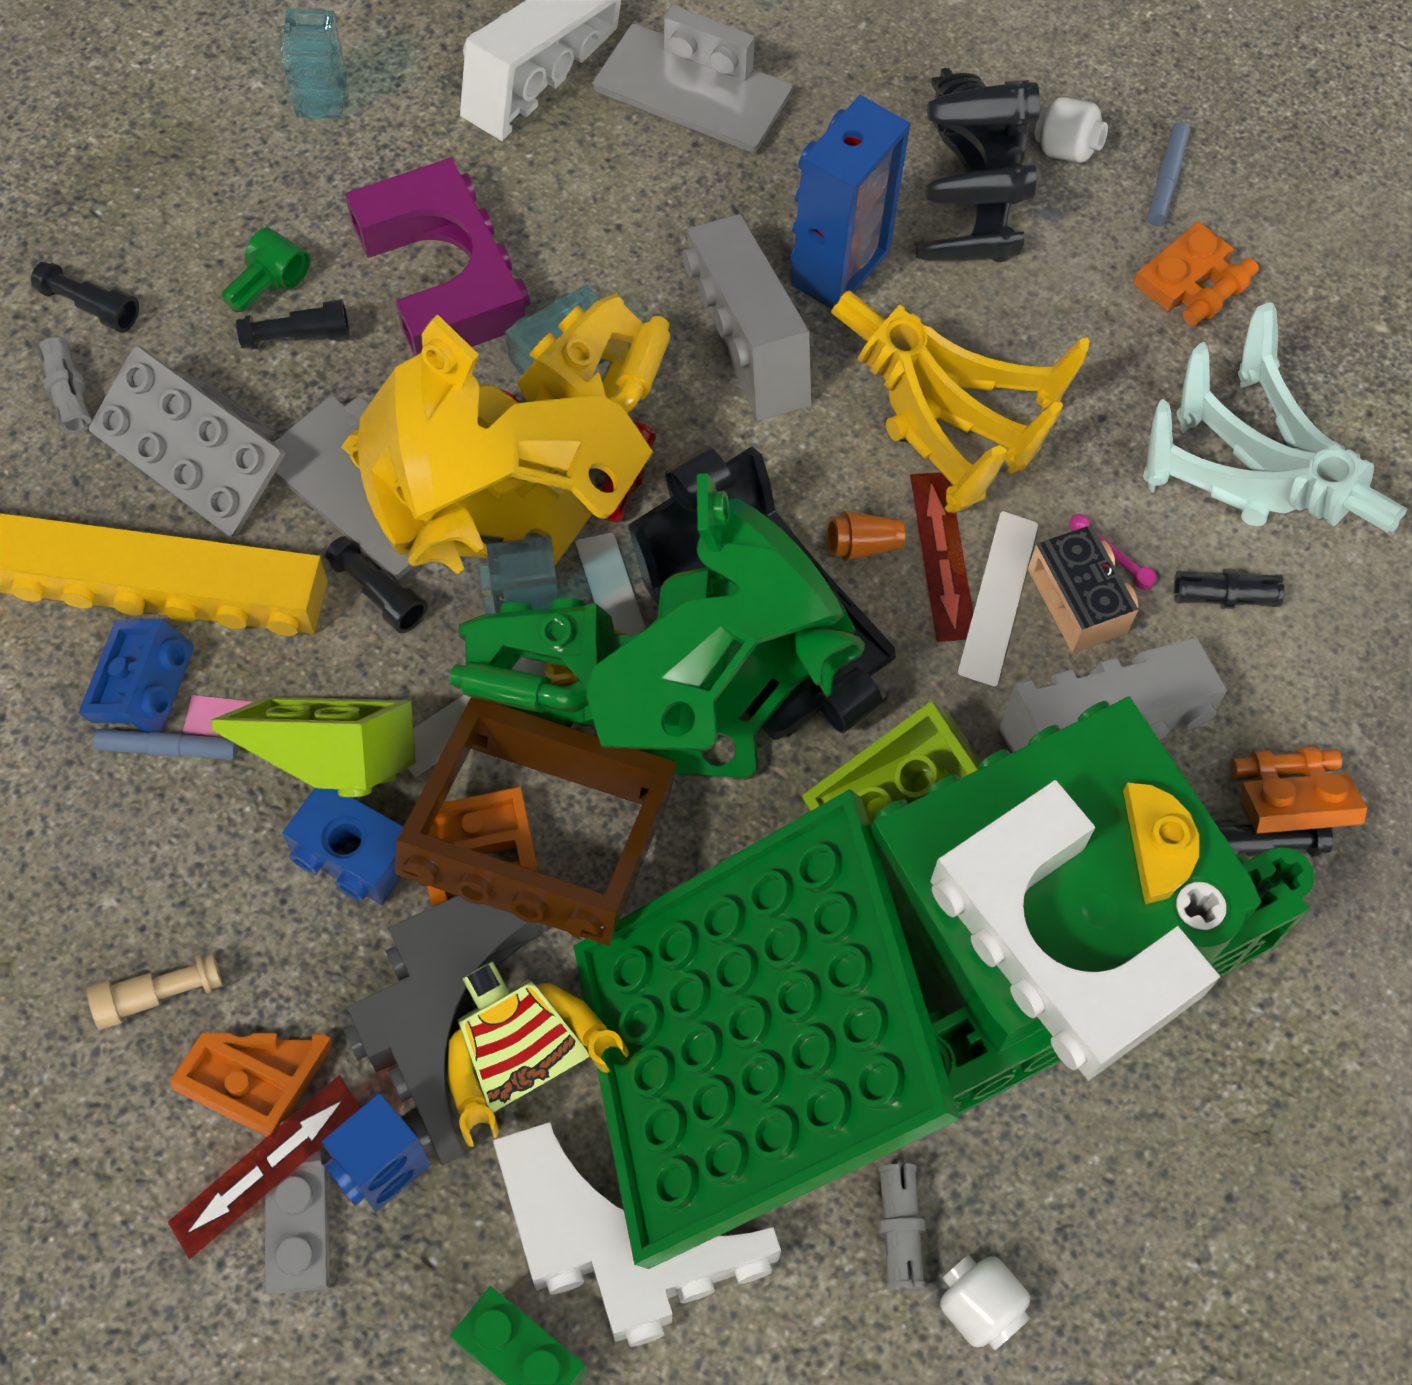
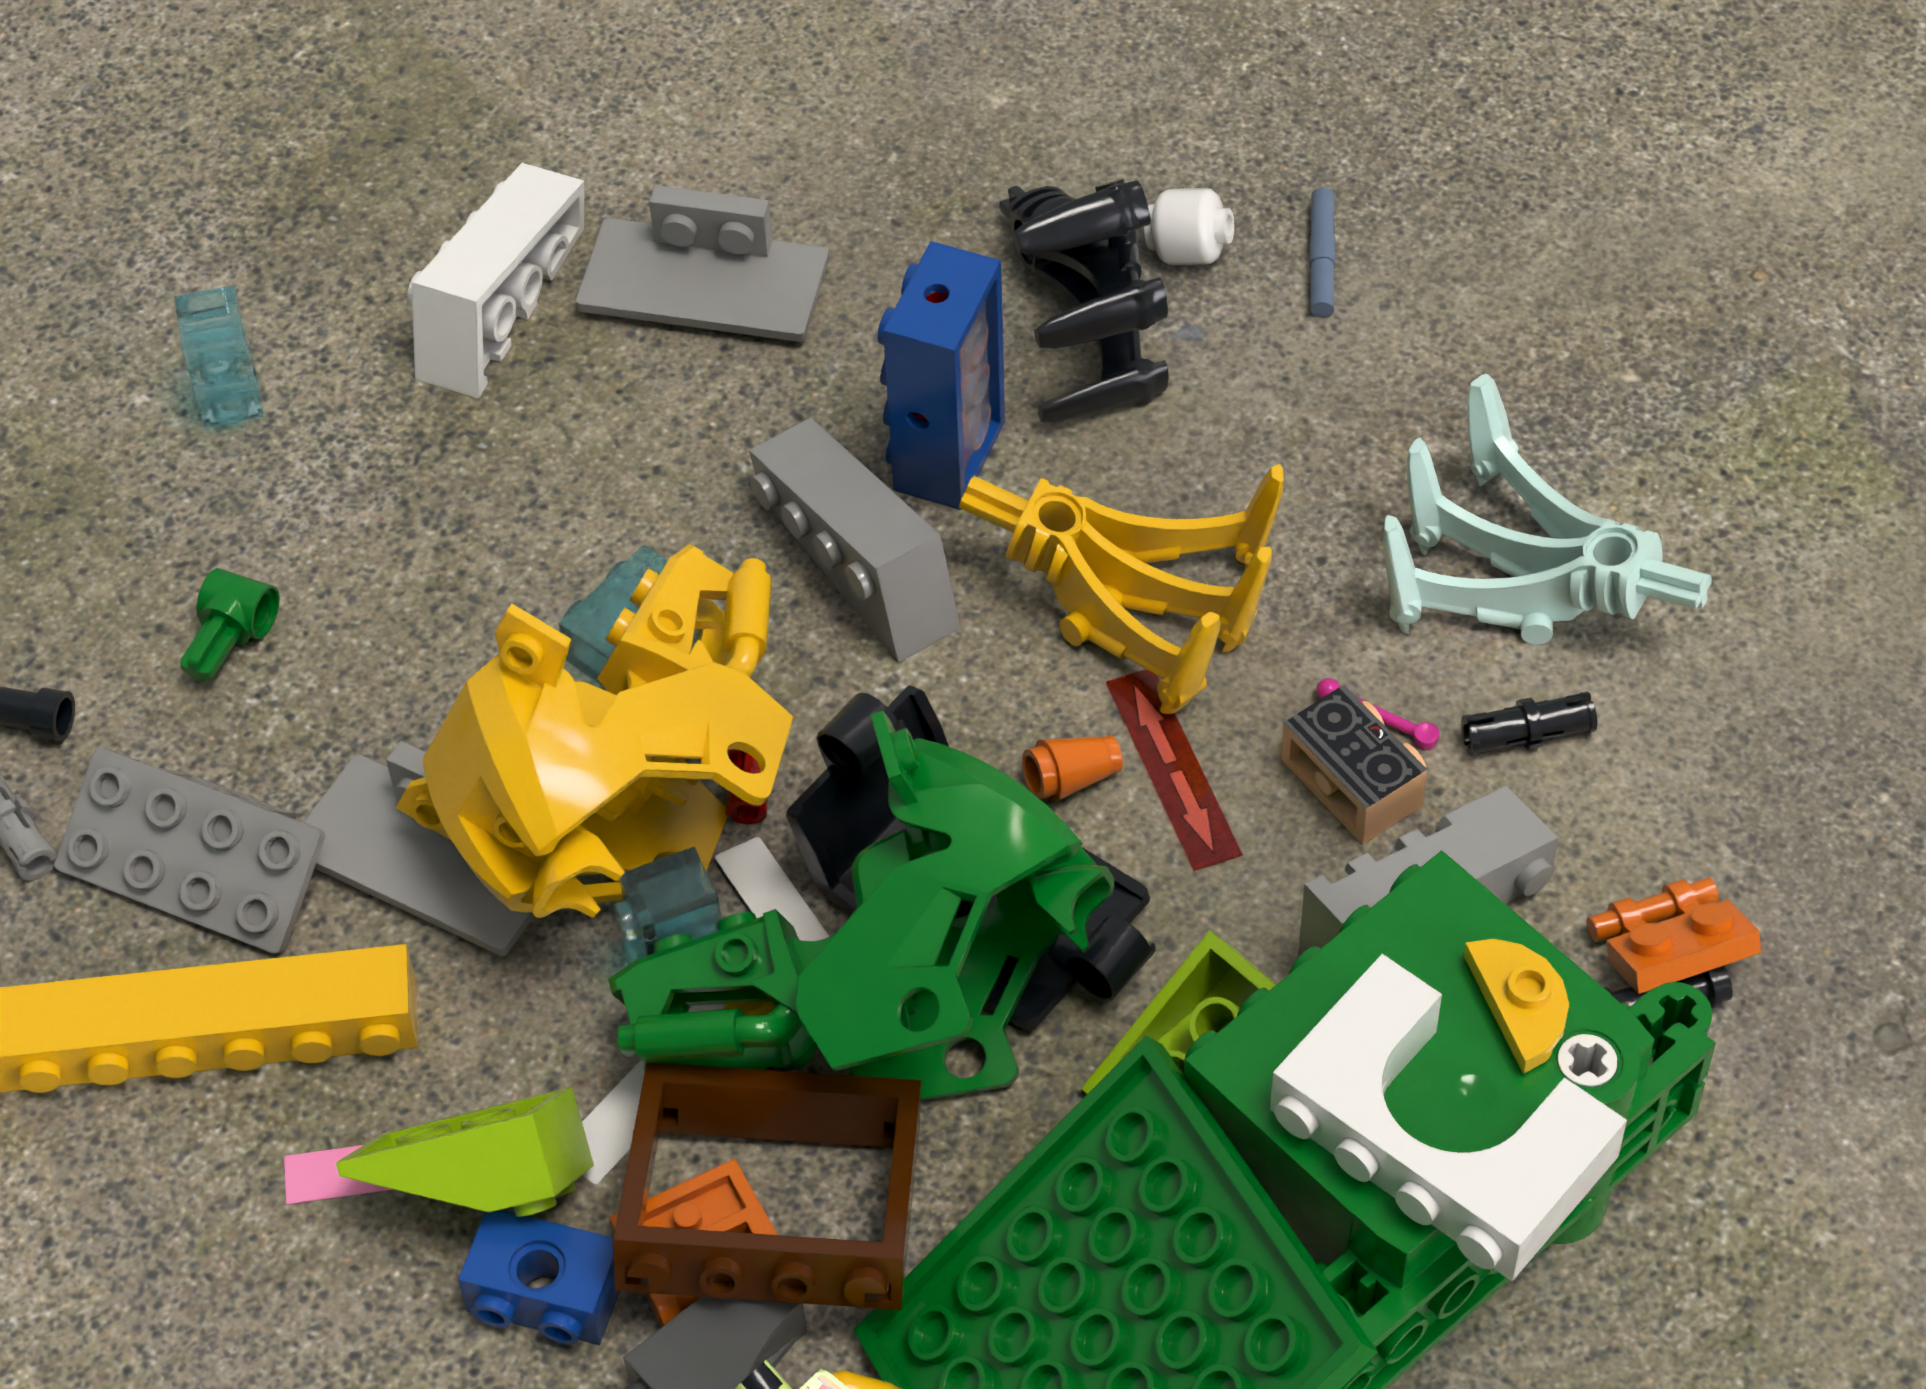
camera: 10 degrees left, 10 degrees down
(137, 675) = (211, 1144): blue bracket -> none
(165, 744) = (271, 1220): sand blue piece -> none
(302, 324) = (292, 677): black piece -> none
(400, 606) = (520, 984): black piece -> none
(440, 206) = (428, 494): magenta arch -> none
(998, 599) = (1255, 802): white sticker -> none
(1185, 265) = (1375, 353): orange plate -> none

